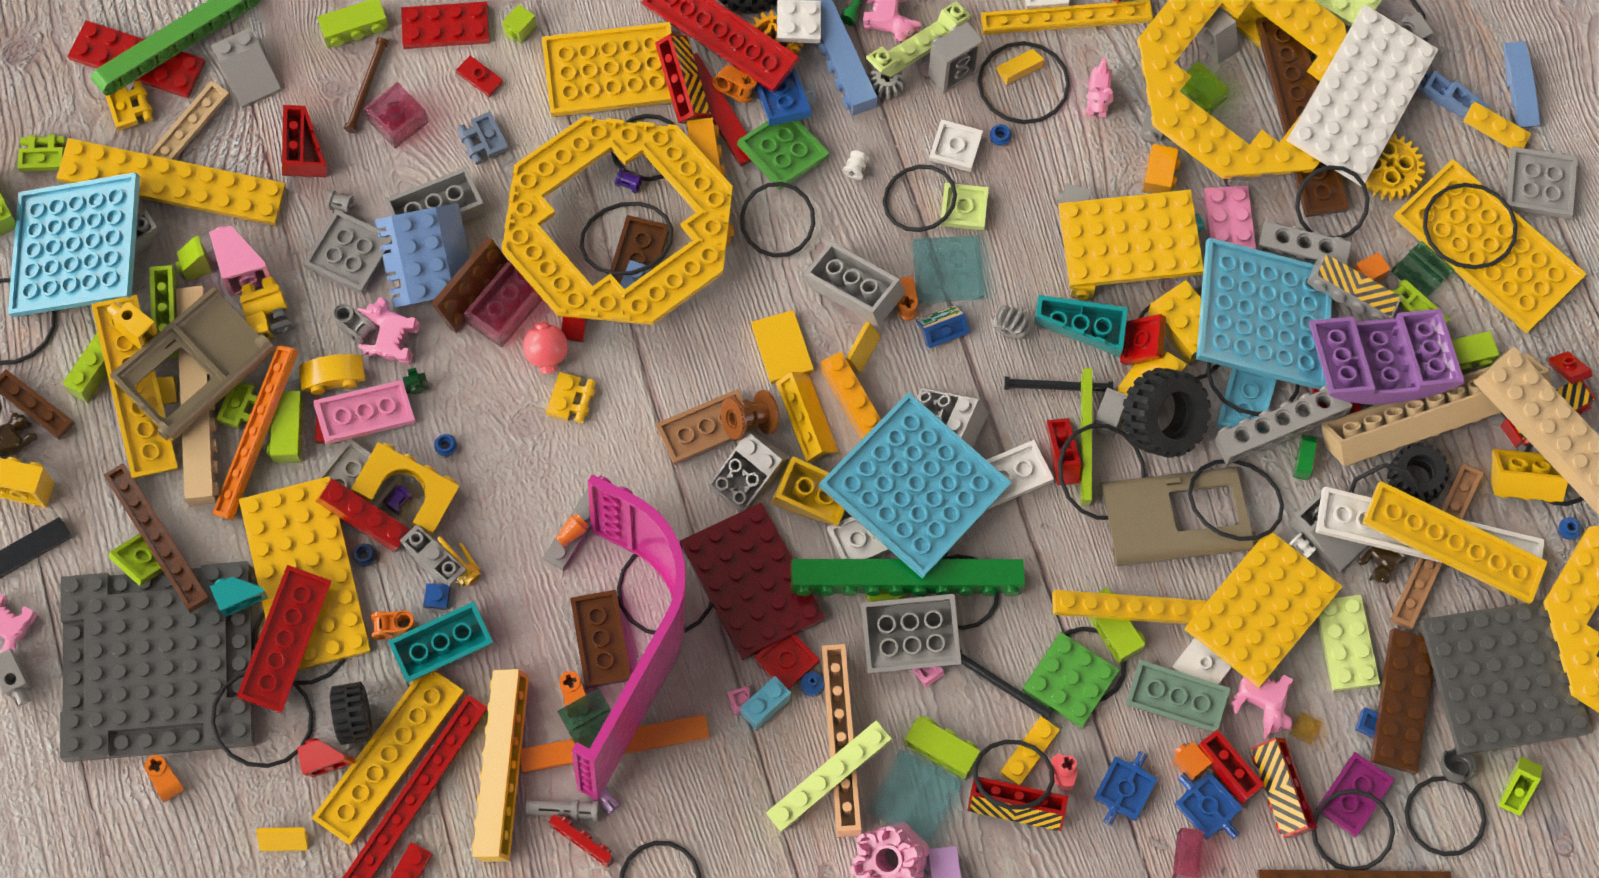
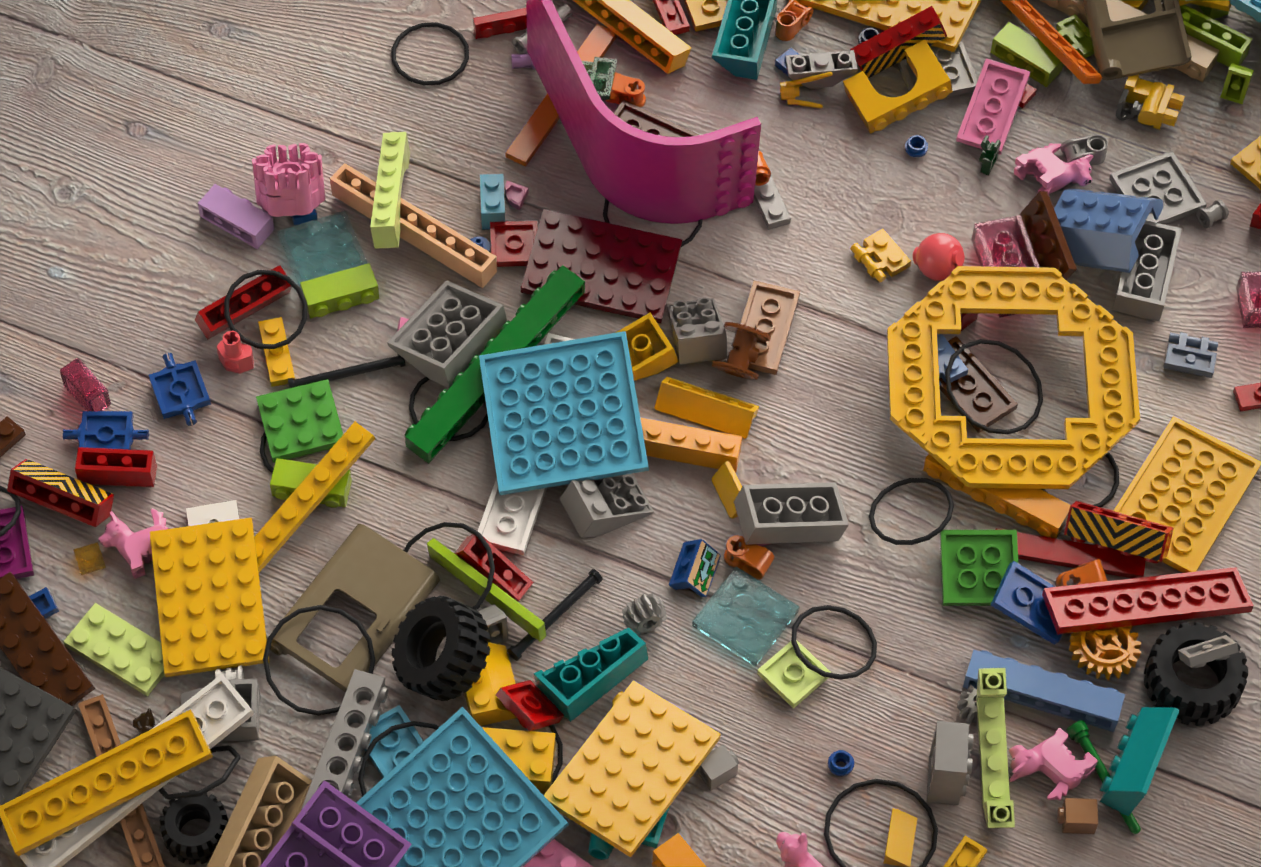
camera: 130 degrees right, 10 degrees down
(237, 260) = (1211, 103): bright pink slope -> none
(331, 373) = (1048, 107): yellow brick -> none
(398, 499) = (896, 84): dark purple bush -> none
(628, 180) = (1051, 430): dark purple bush -> none
(781, 345) = (788, 435): yellow tile -> none
(798, 21) = (1101, 666): white plate -> none
(856, 165) = (913, 616): white bush -> none
(955, 145) = (862, 714): white plate -> none
(1178, 696) = (207, 480): sand green plate -> none
(1191, 760) = (154, 442): orange brick -> none
(1305, 457) = (301, 752): green piece -> none

